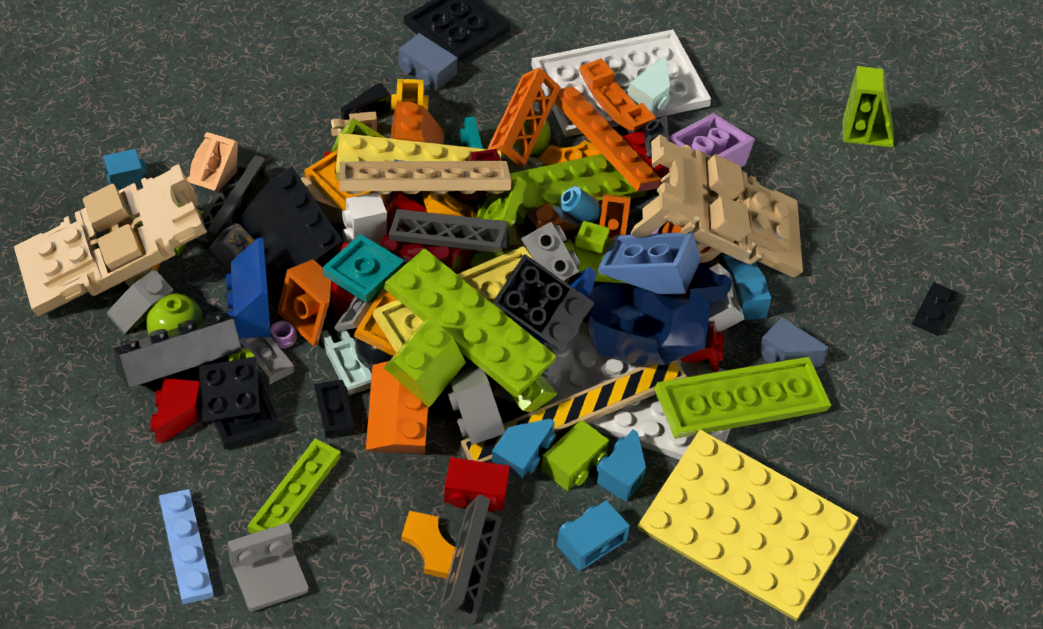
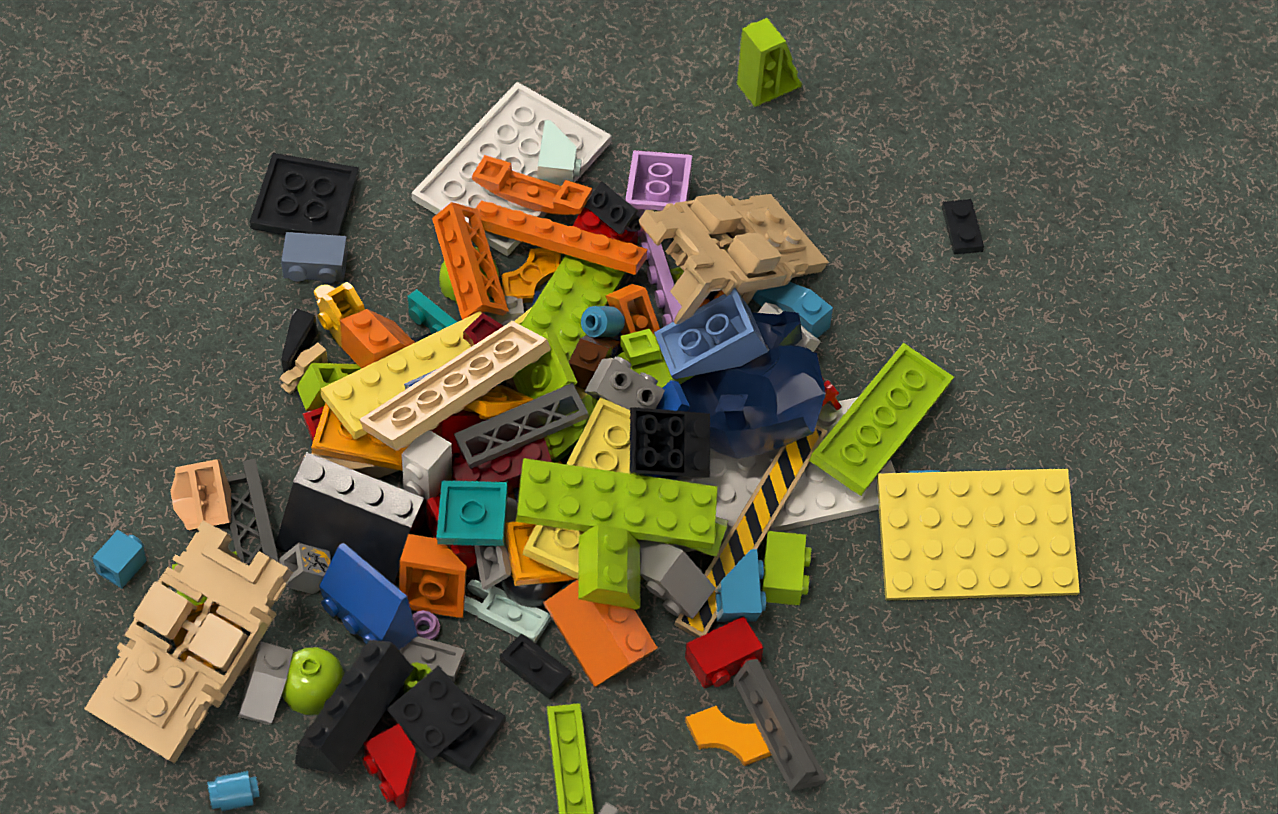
camera: 35 degrees left, 5 degrees up
(56, 357) = (233, 791): none -> dark azure brick
(592, 535) = (860, 632): dark azure brick -> none
(624, 468) = (835, 552): dark azure slope -> none
(789, 342) = (877, 342): sand blue slope -> none

